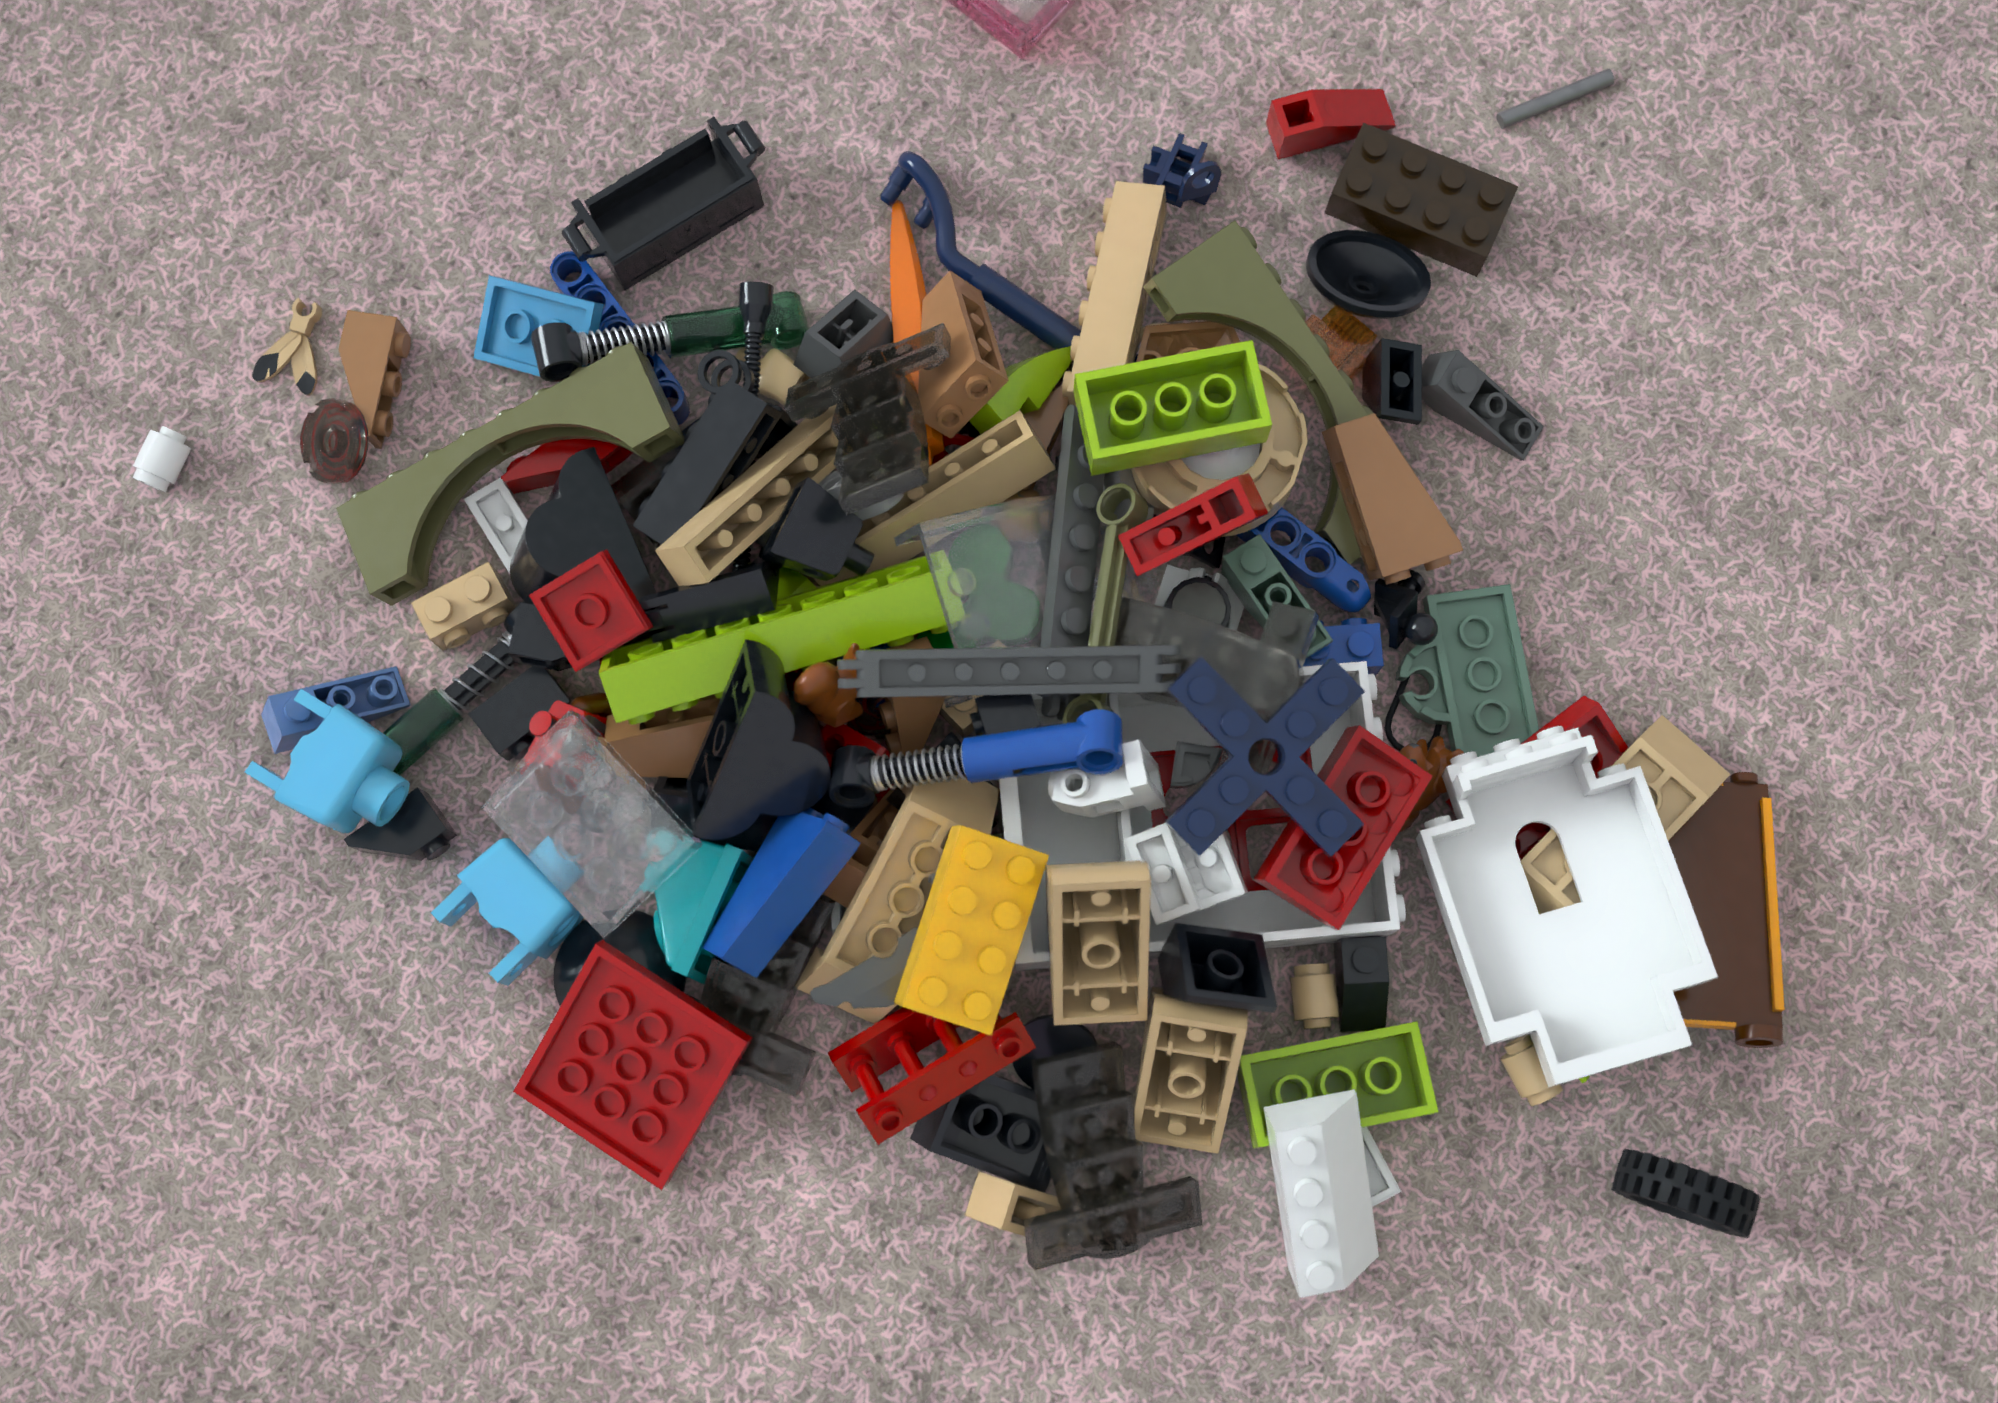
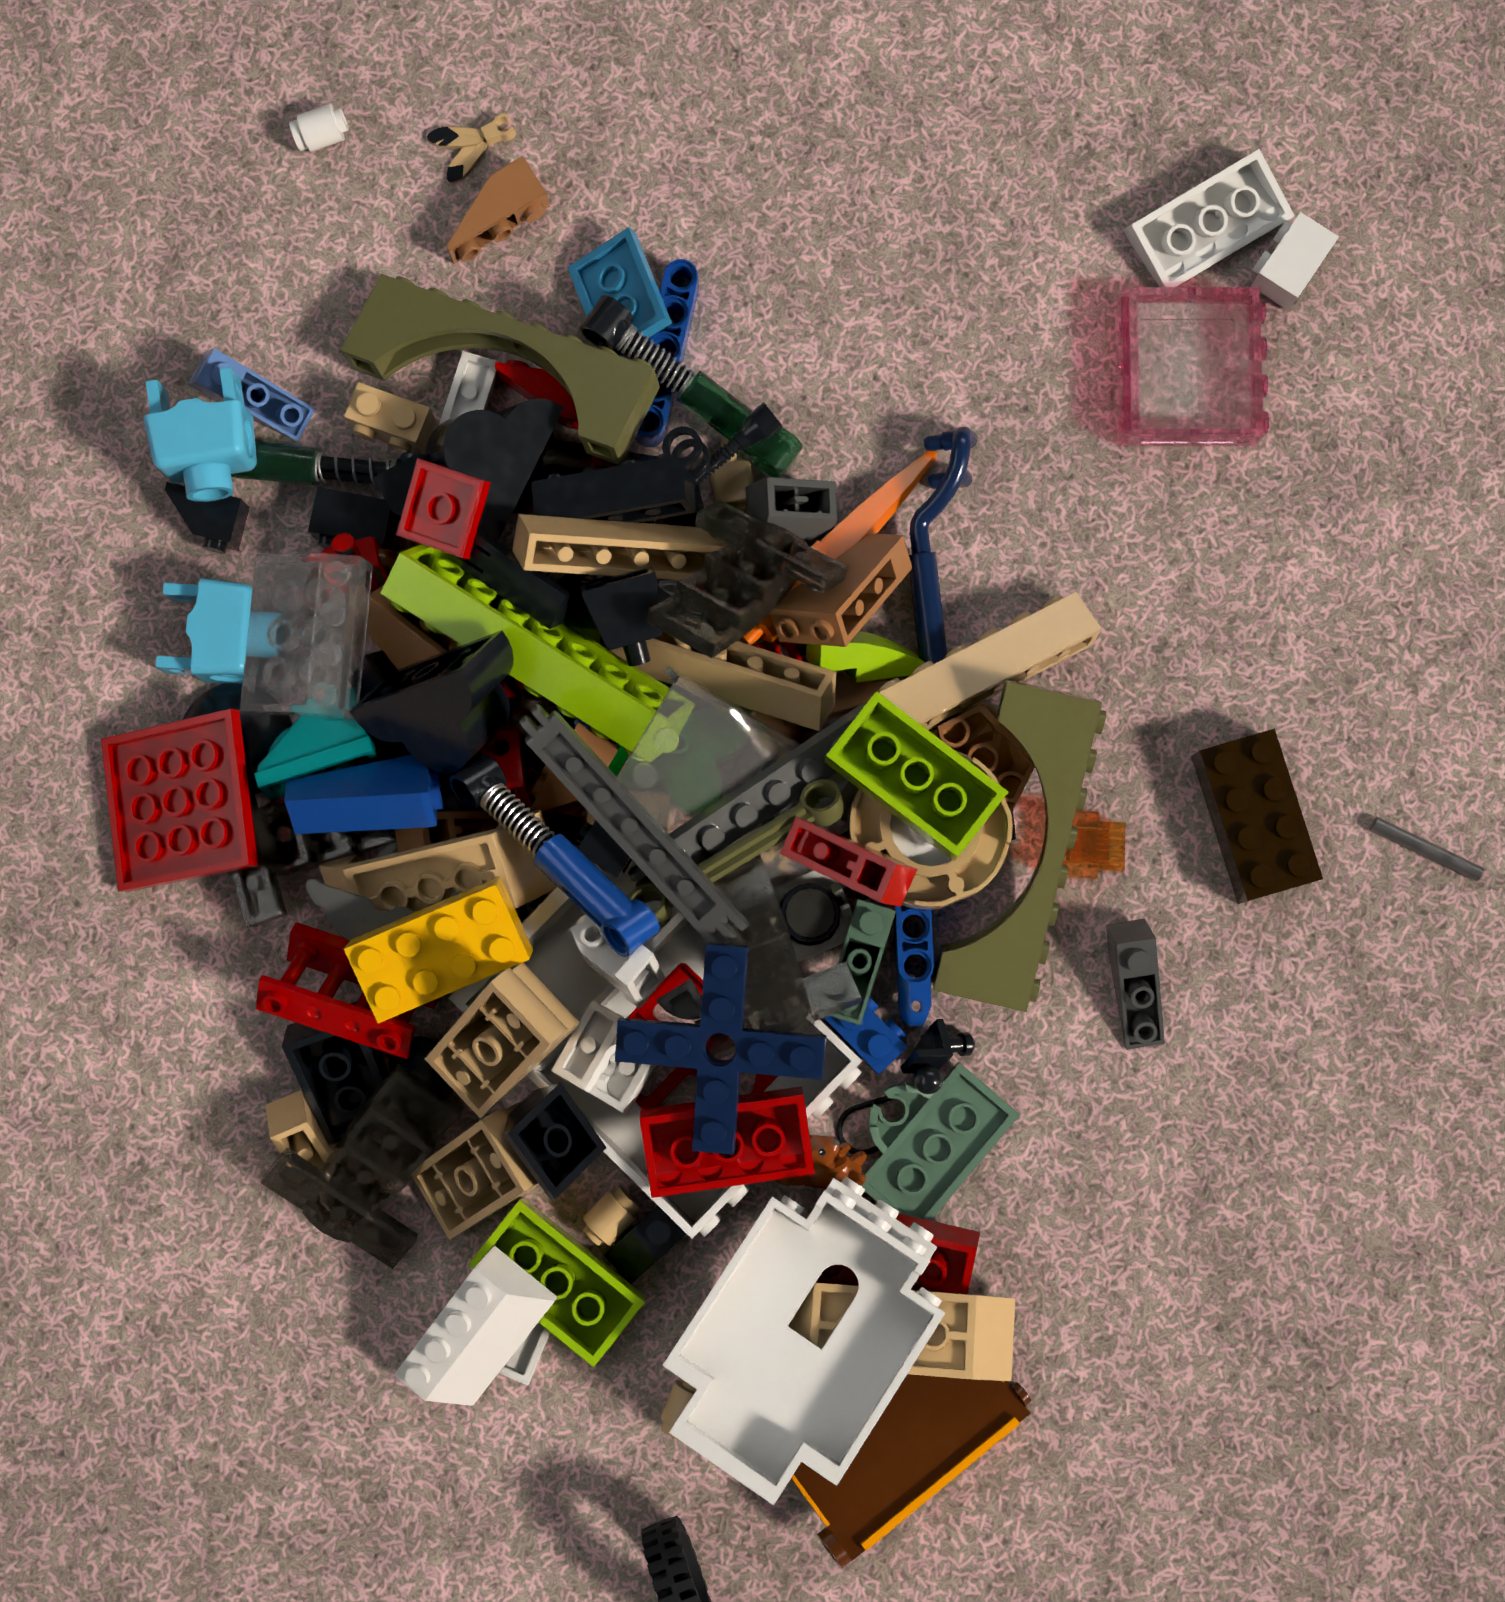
camera: 50 degrees right, 5 degrees up
(351, 445) = (422, 246): clear smoke tile -> none
(670, 204) = (787, 300): black container -> none
(820, 692) = (513, 706): dark orange animal -> none
(1181, 178) = (1127, 637): dark blue piece -> none
(1324, 118) = (1261, 700): red slope -> none
(1368, 274) = (1163, 826): black dish -> none
(1387, 503) = (995, 981): medium nougat slope -> none
(1394, 381) = (1095, 912): black slope -> none

